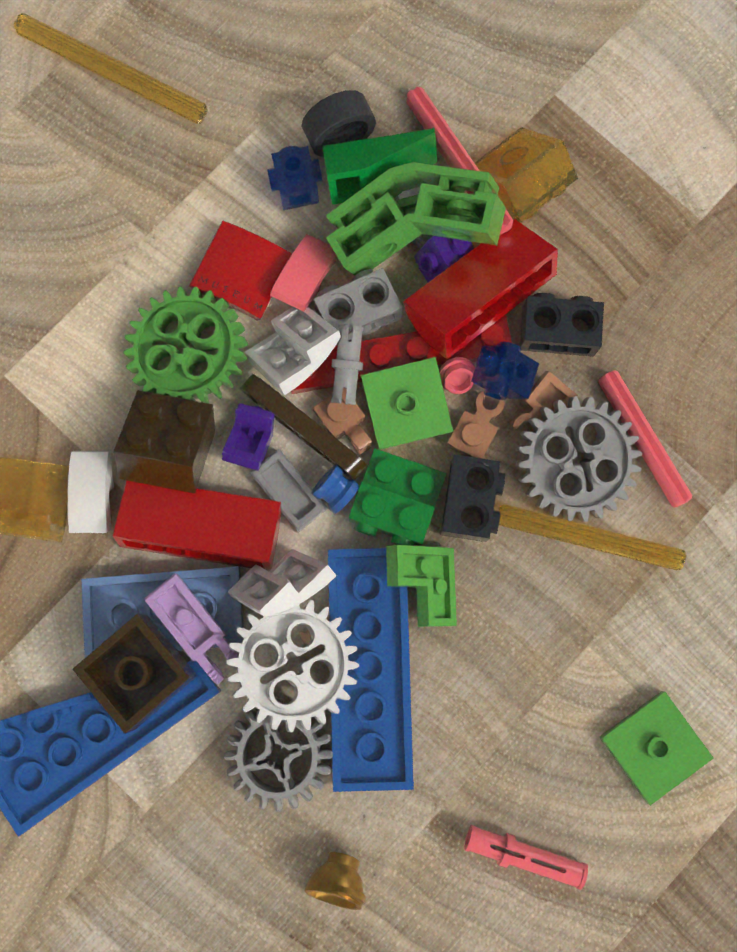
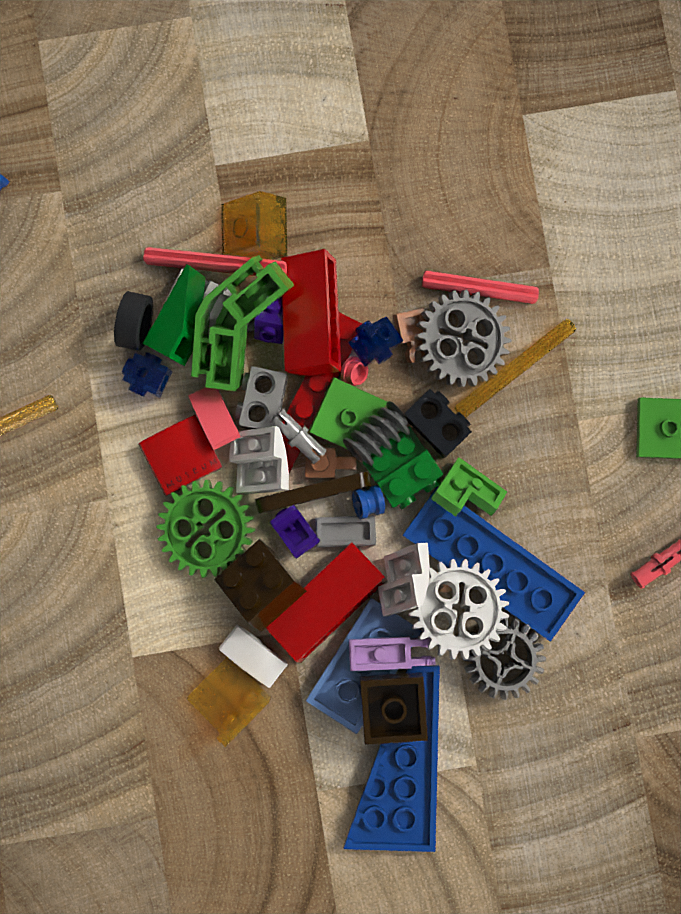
camera: 50 degrees left, 5 degrees up
(337, 882) = (605, 678): pearl gold piece -> none
(412, 443) = (377, 433): none -> dark grey piece
(475, 432) = (396, 387): nougat plate -> none
(562, 335) = (377, 286): black brick -> none

